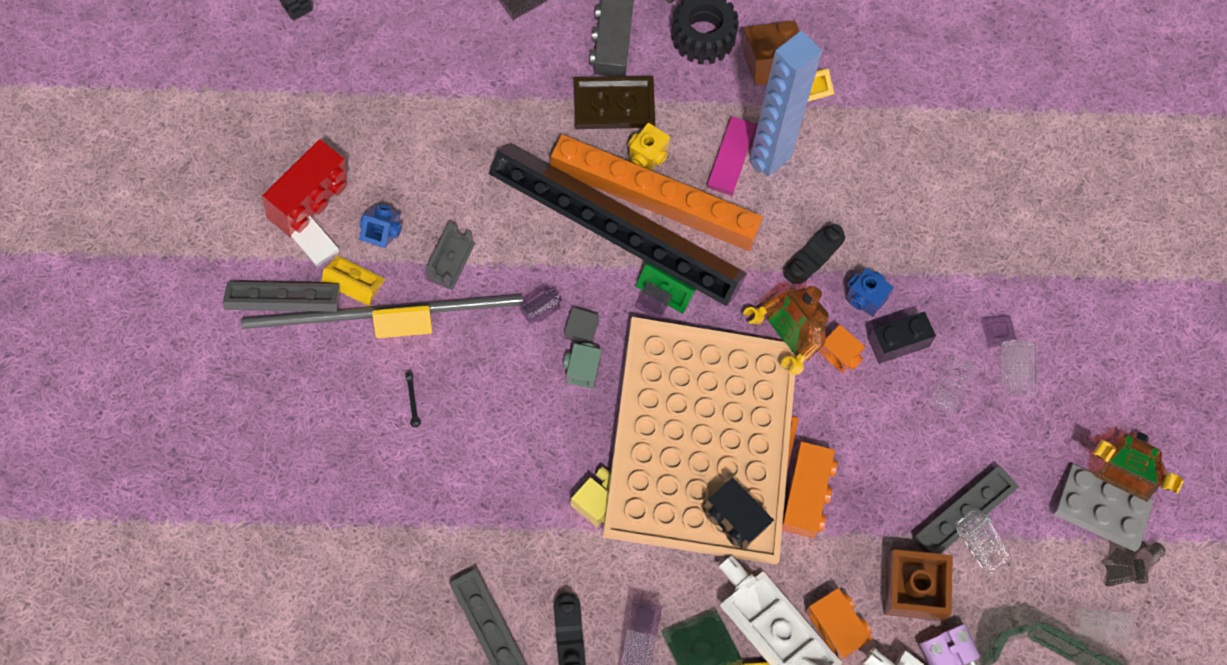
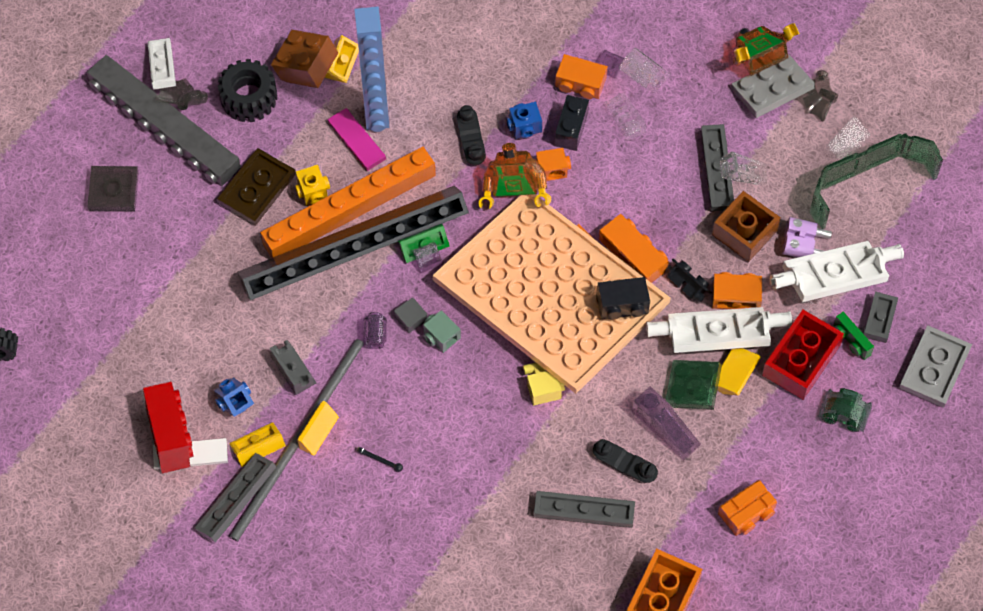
camera: 50 degrees left, 5 degrees down
(816, 578) = (681, 273): none -> black hinge
(960, 313) = (581, 77): none -> orange brick

